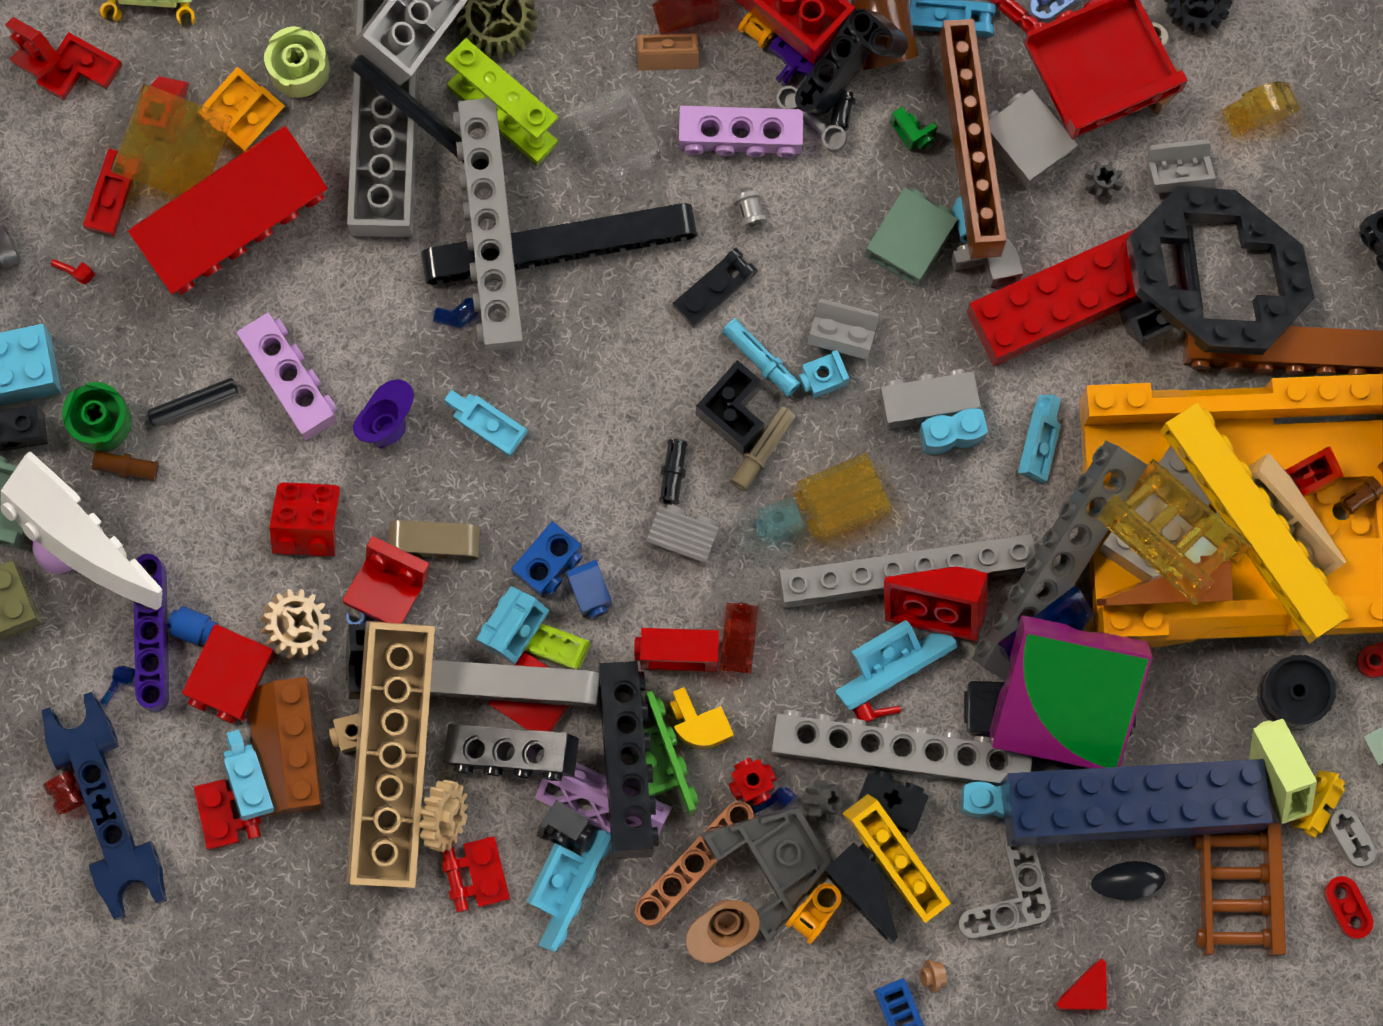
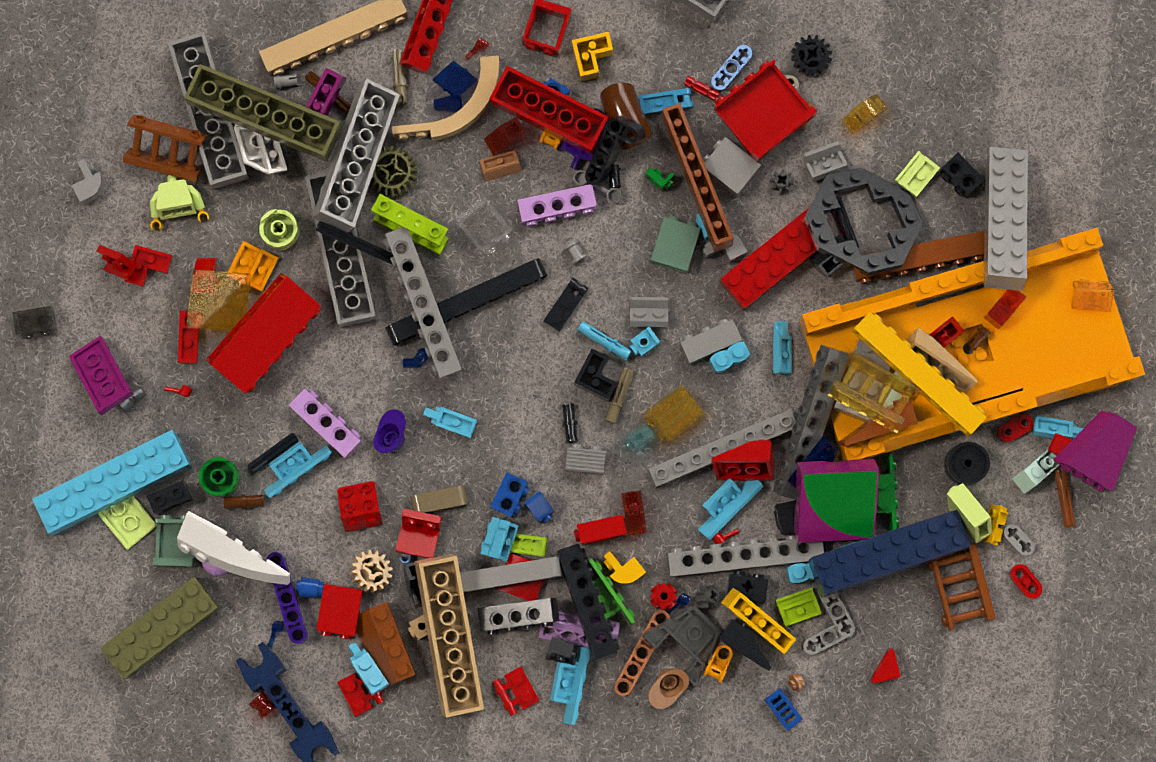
camera: 15 degrees left, 5 degrees up
(219, 426) = (292, 465): none -> medium azure bracket
(443, 815) = (489, 662): tan gear -> none
(966, 854) = (798, 607): none -> lime plate
(1129, 880) = (895, 598): black arm -> none
(1156, 698) = (886, 493): none -> green bracket
(1322, 222) = (917, 174): none -> yellowish green plate

